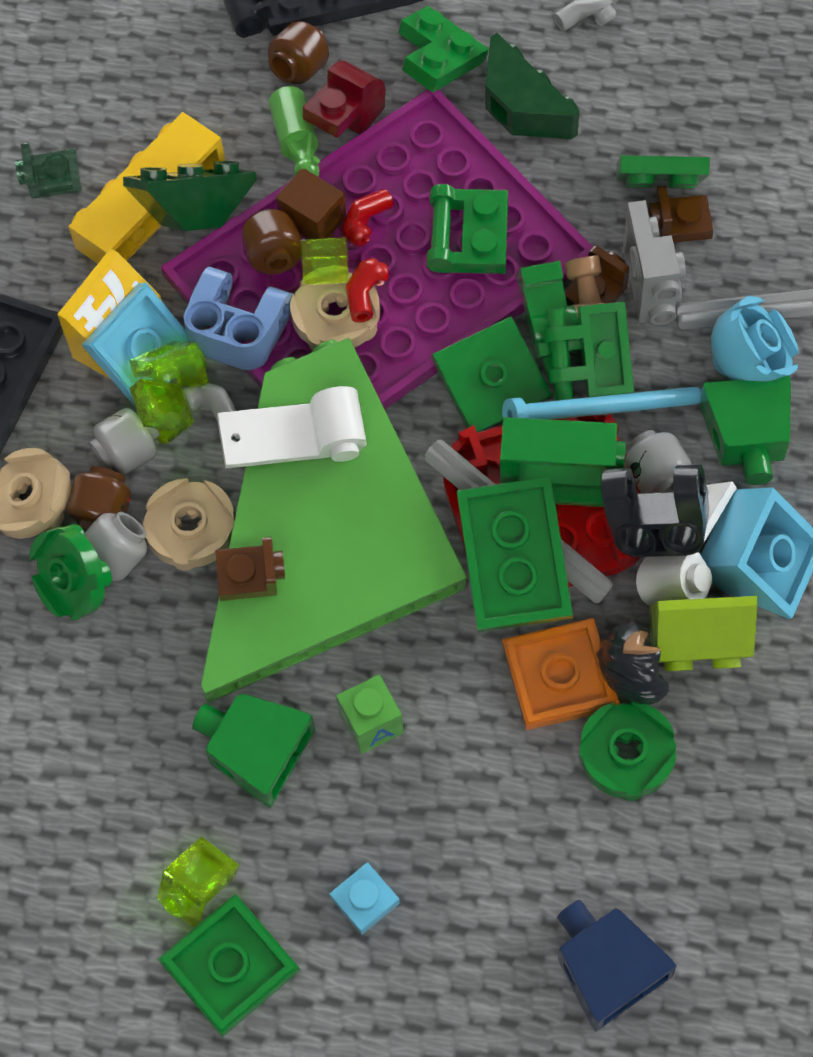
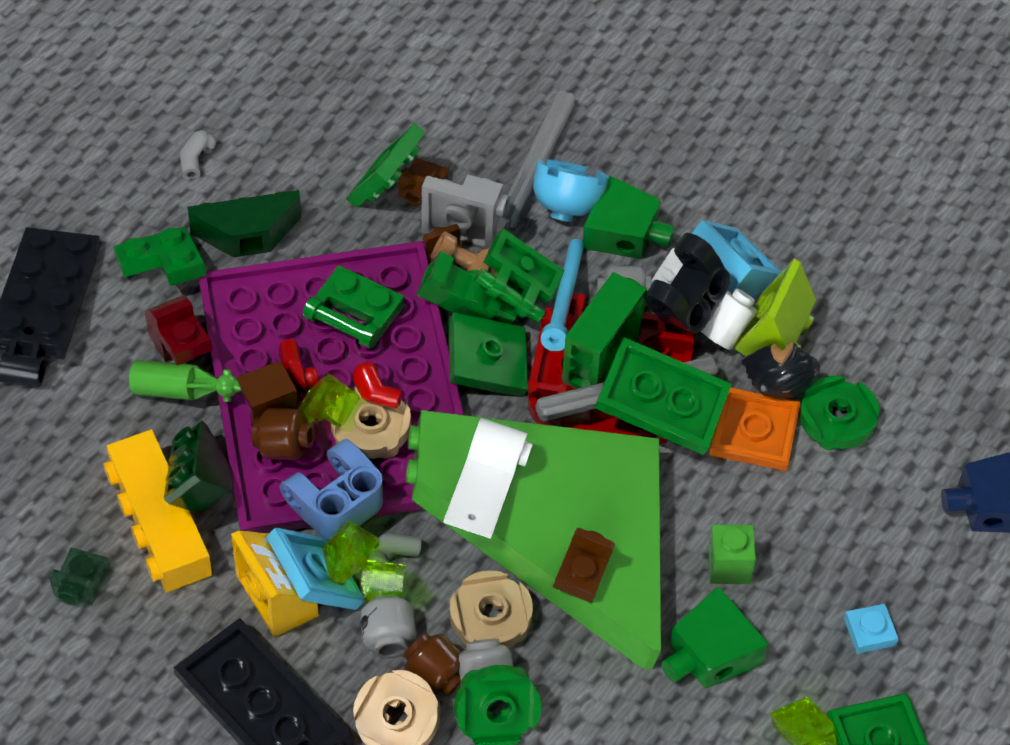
camera: 70 degrees left, 10 degrees down
(298, 53) = (96, 348): reddish brown head -> none

